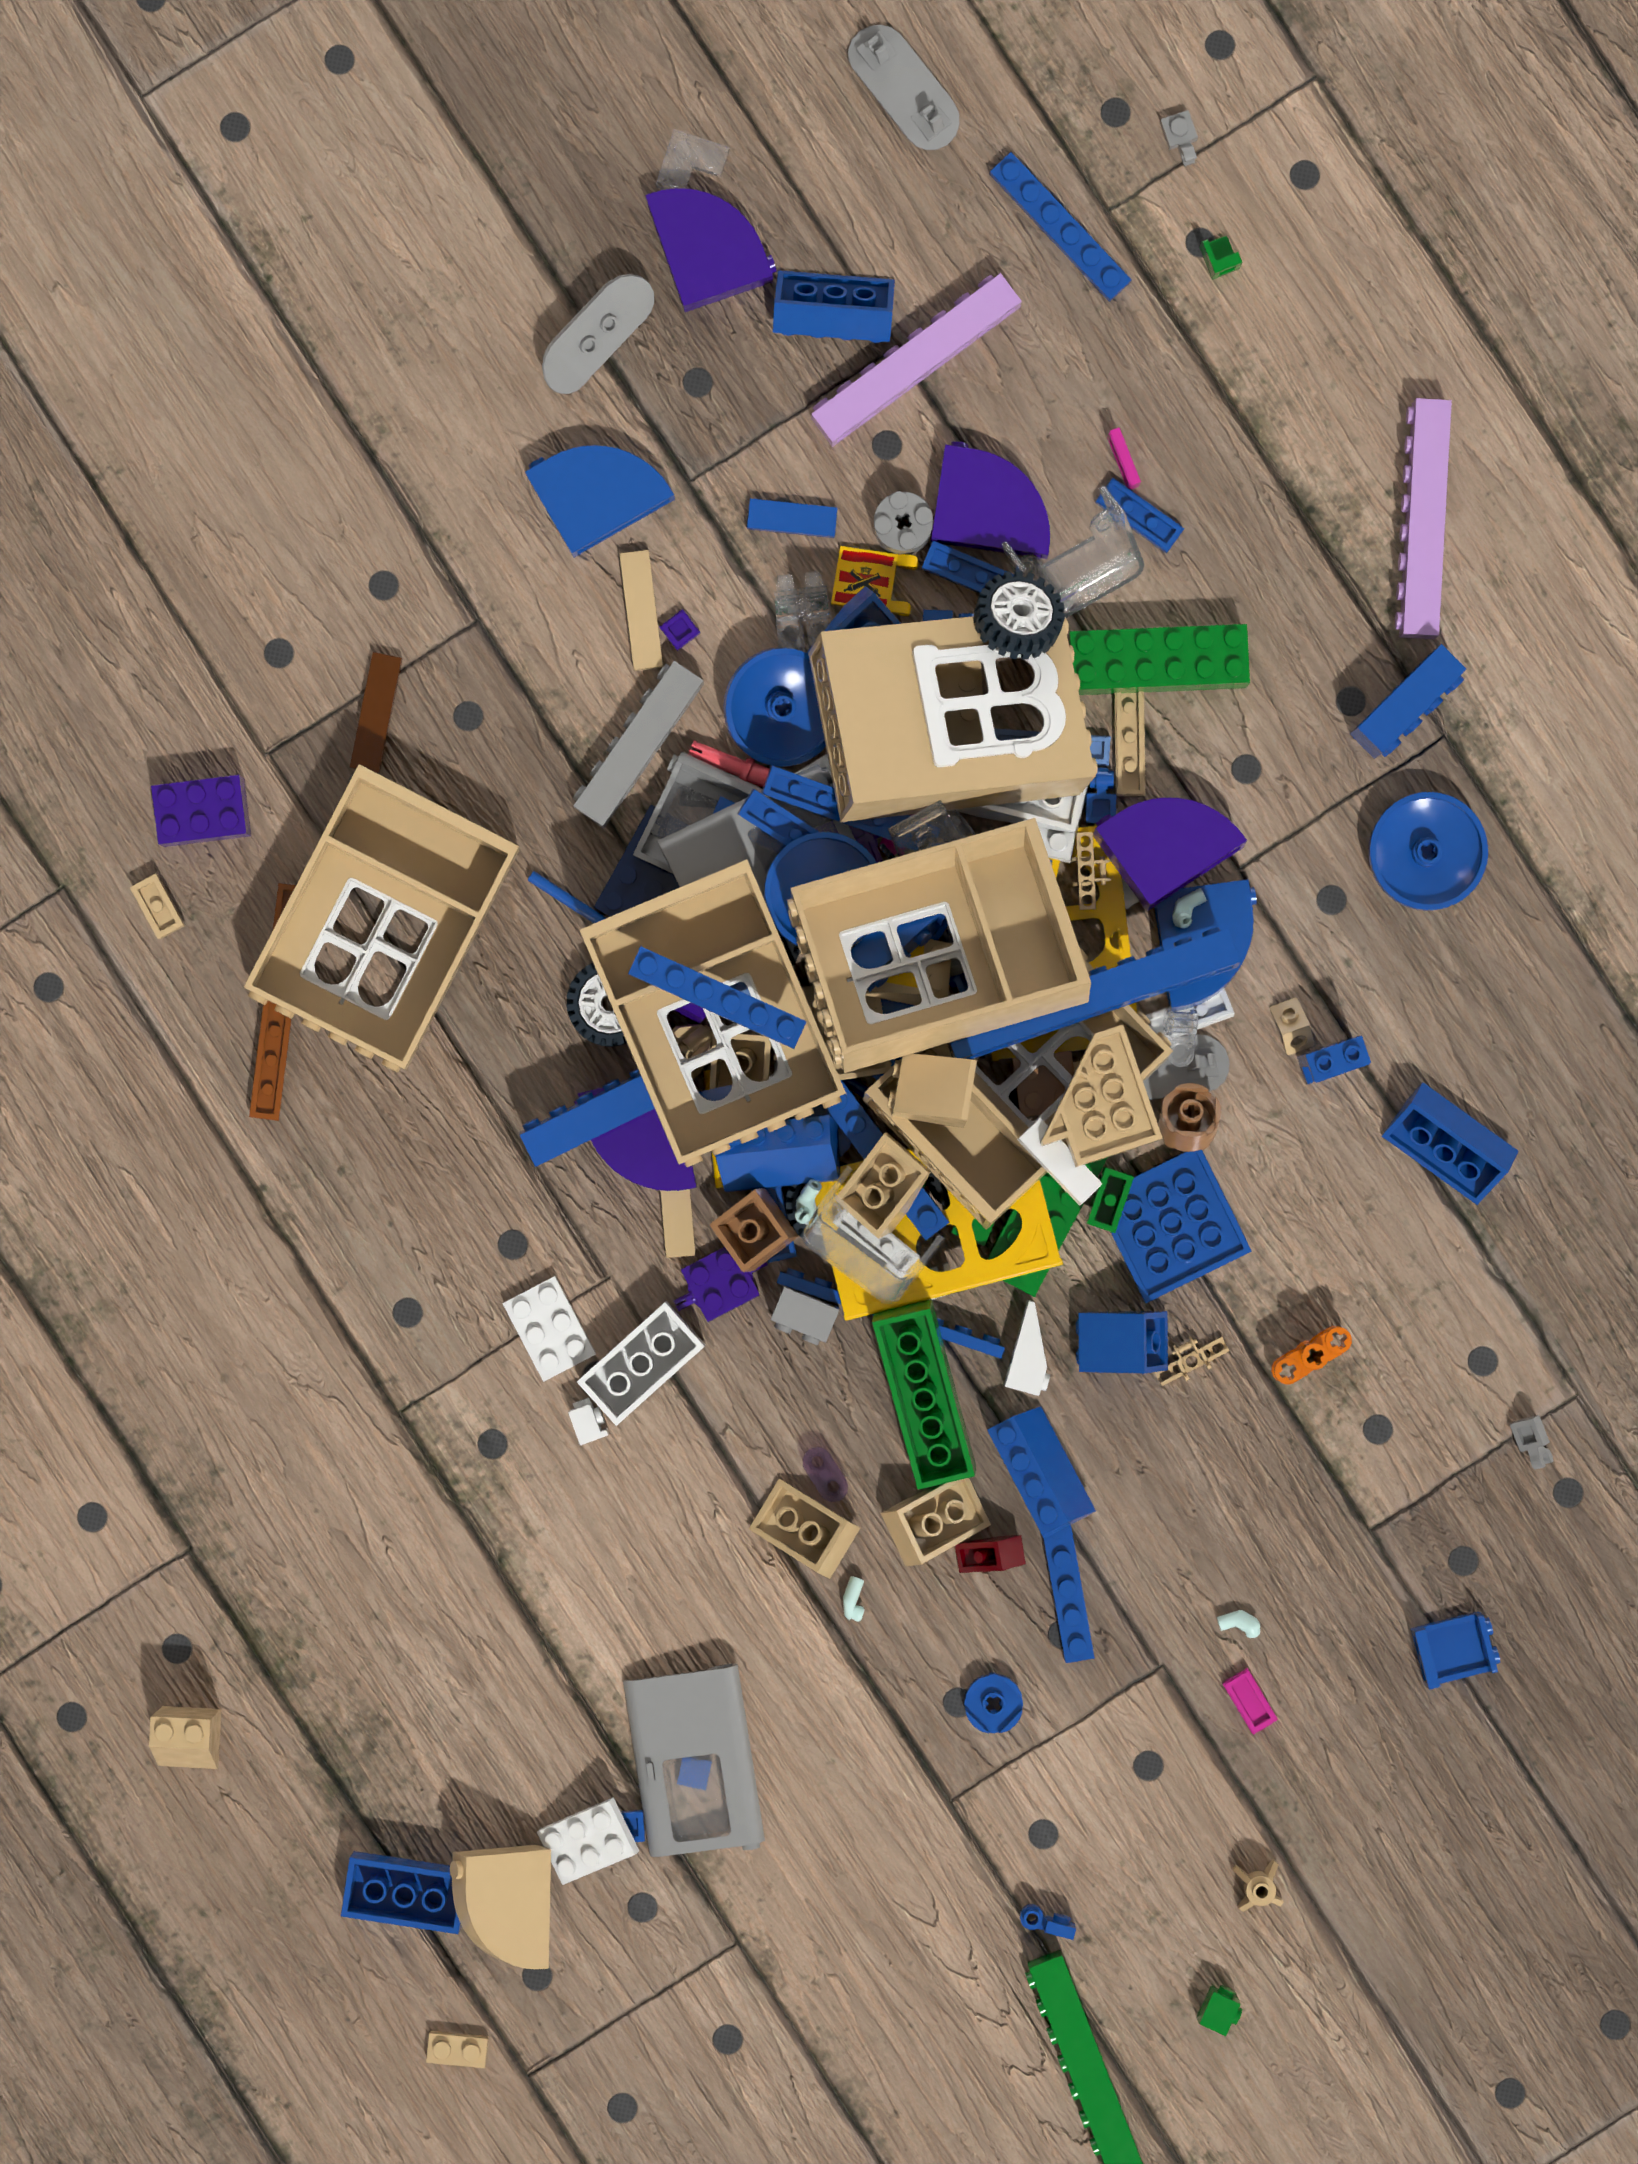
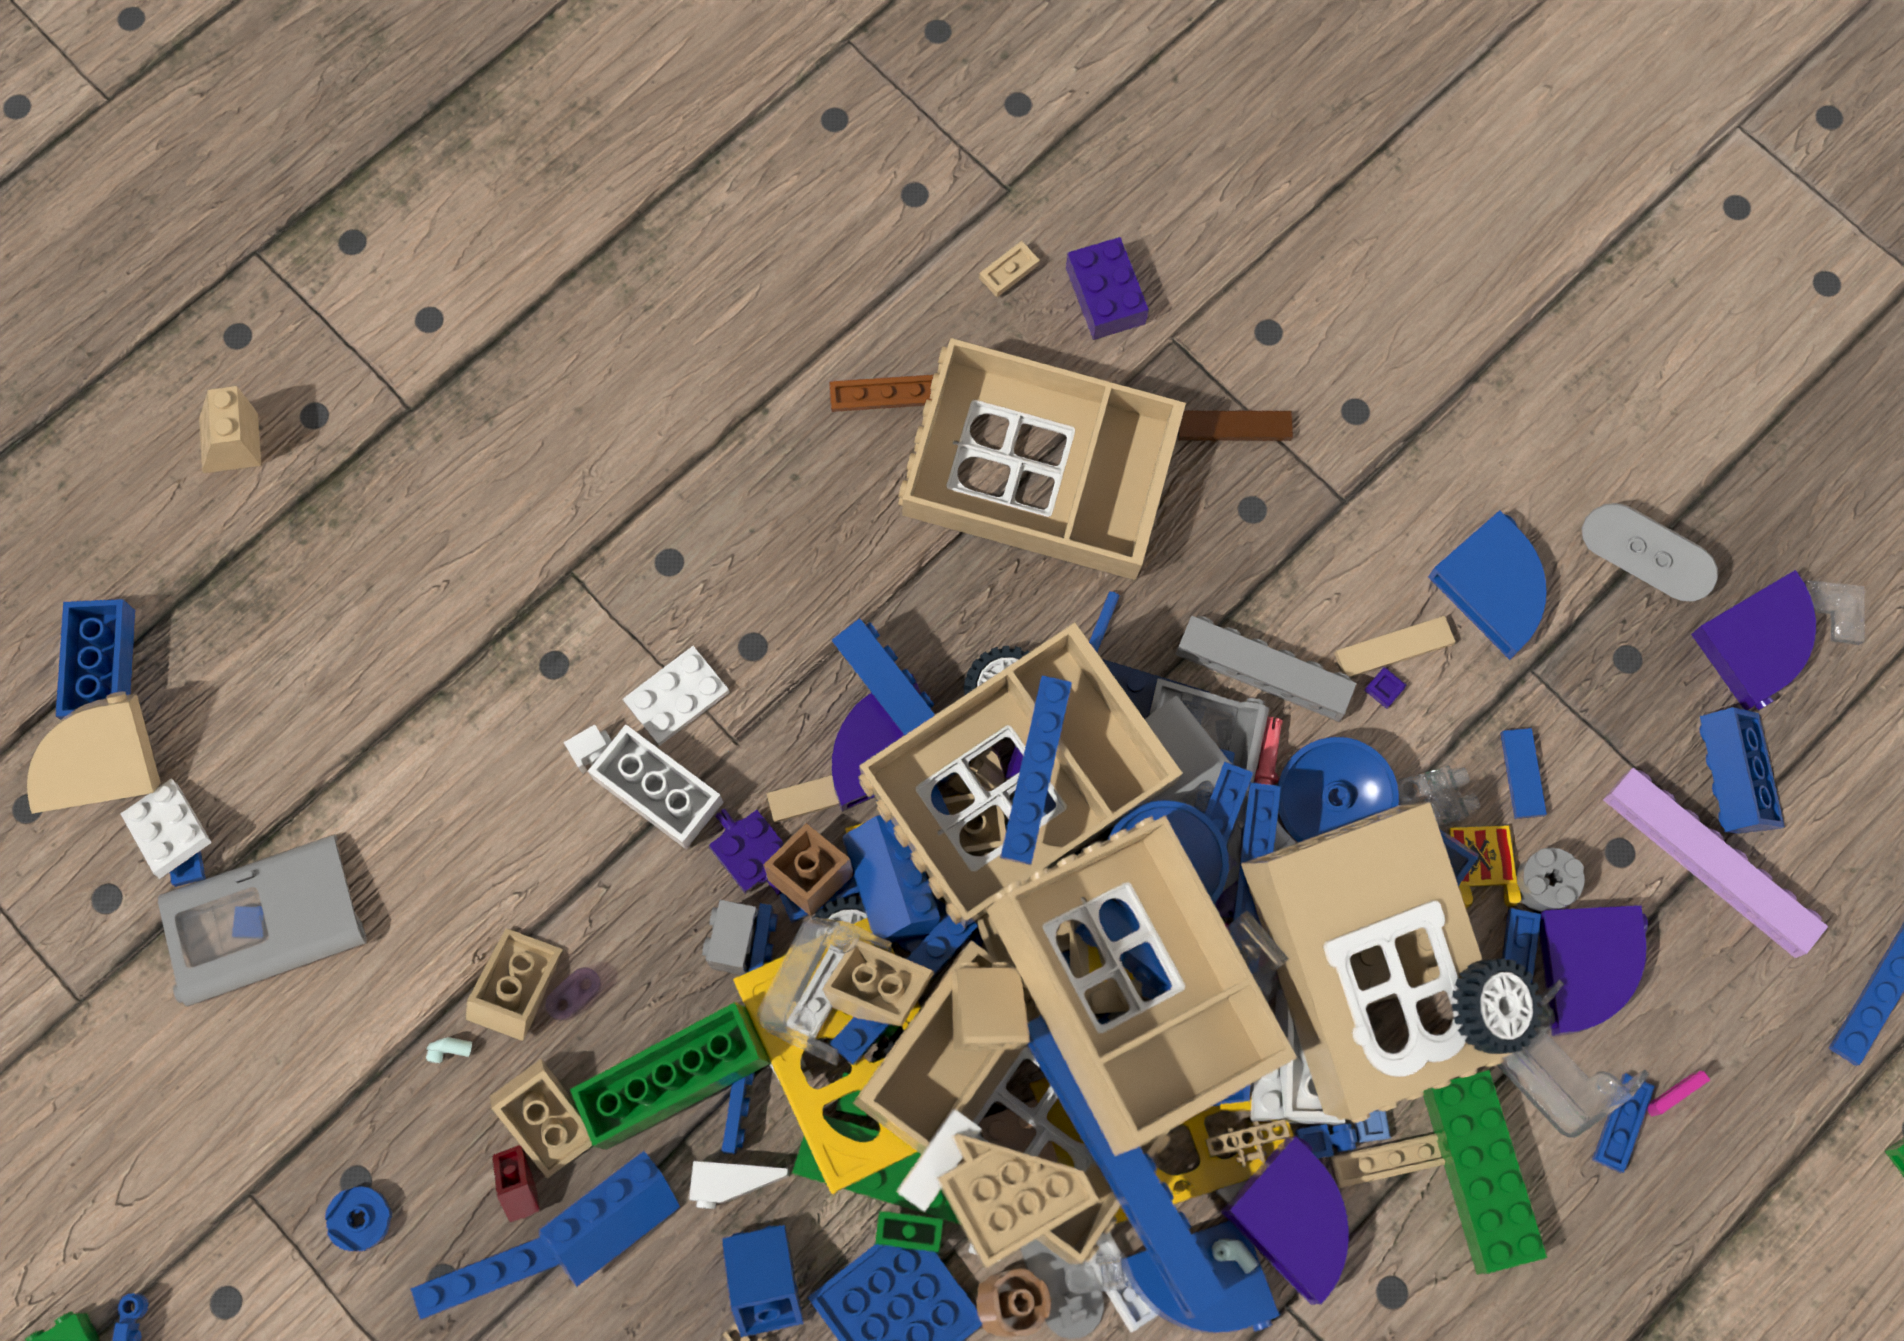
camera: 75 degrees right, 15 degrees down
(806, 1201) = (849, 915): light aqua arm -> none

